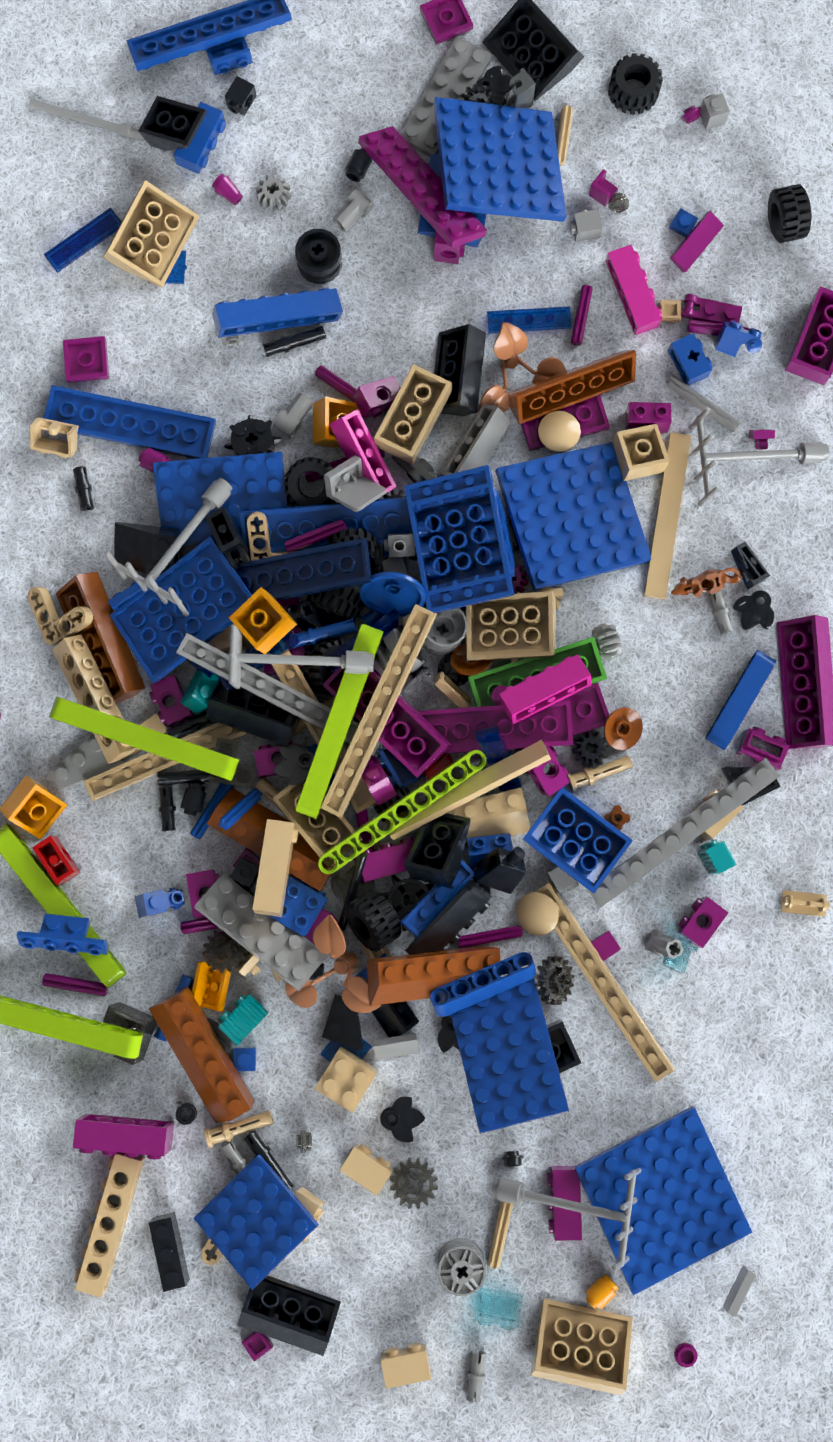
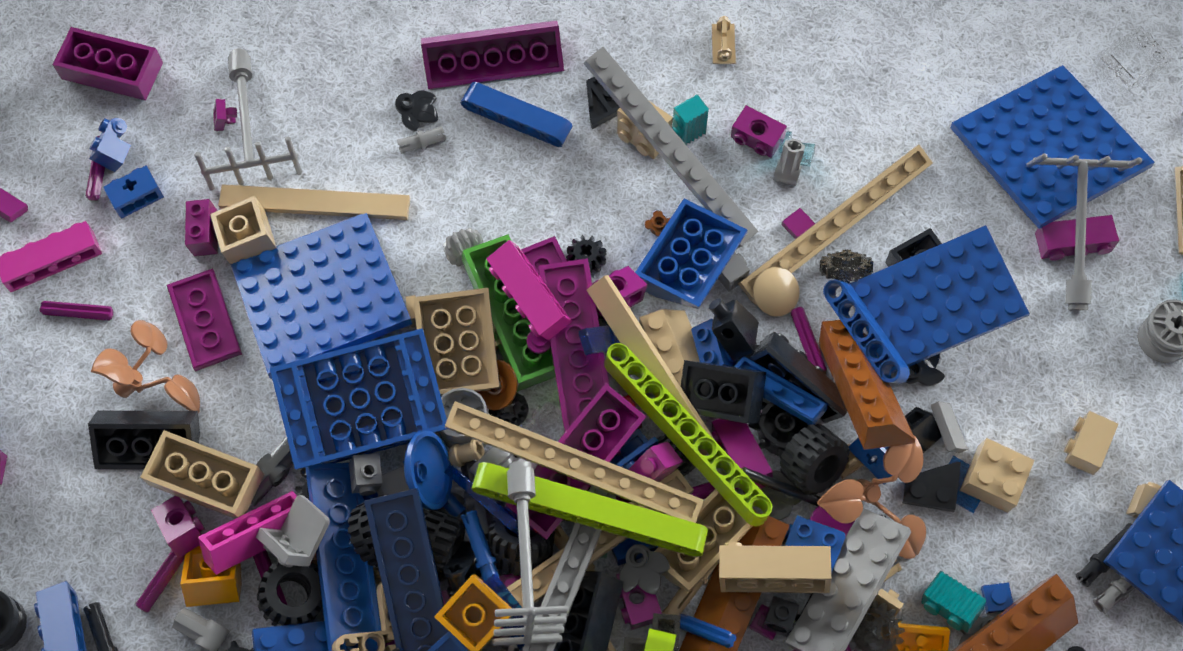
camera: 95 degrees left, 15 degrees down
(228, 1132) = (1085, 608): tan pin -> none
(304, 1141) = (1076, 516): clear smoke plate -> none
(314, 536) = (359, 577): magenta axle -> none
(405, 1119) = (1025, 410): black plate -> none
(405, 1189) = (1088, 381): clear smoke gear -> none
(450, 689) = (535, 403): tan tile -> none
(478, 440) = (237, 406): light grey brick -> none
(499, 1234) = (1123, 300): tan axle -> none
(512, 1159) = (1043, 294): black plate -> none
(530, 319) = (79, 363): clear blue tile -> none
(559, 431) = (219, 319): tan dish -> none
(573, 386) = (164, 307): dark orange slope -> none
(587, 776) = (615, 254): tan pin -> none
(601, 1292) = (1158, 195): light orange brick -> none
(630, 729) = (559, 224): dark orange dish -> none
(670, 310) = (73, 215): tan tile -> none
(702, 403) = (183, 178): light grey axle -> none
(710, 310) = (74, 177): magenta plate -> none
(710, 580) = (387, 152): dark orange animal -> none
(739, 1290) = (1125, 63): light grey tile -> none
(749, 566) = (368, 115): black wing -> none
(757, 754) = (567, 105): magenta window -> none

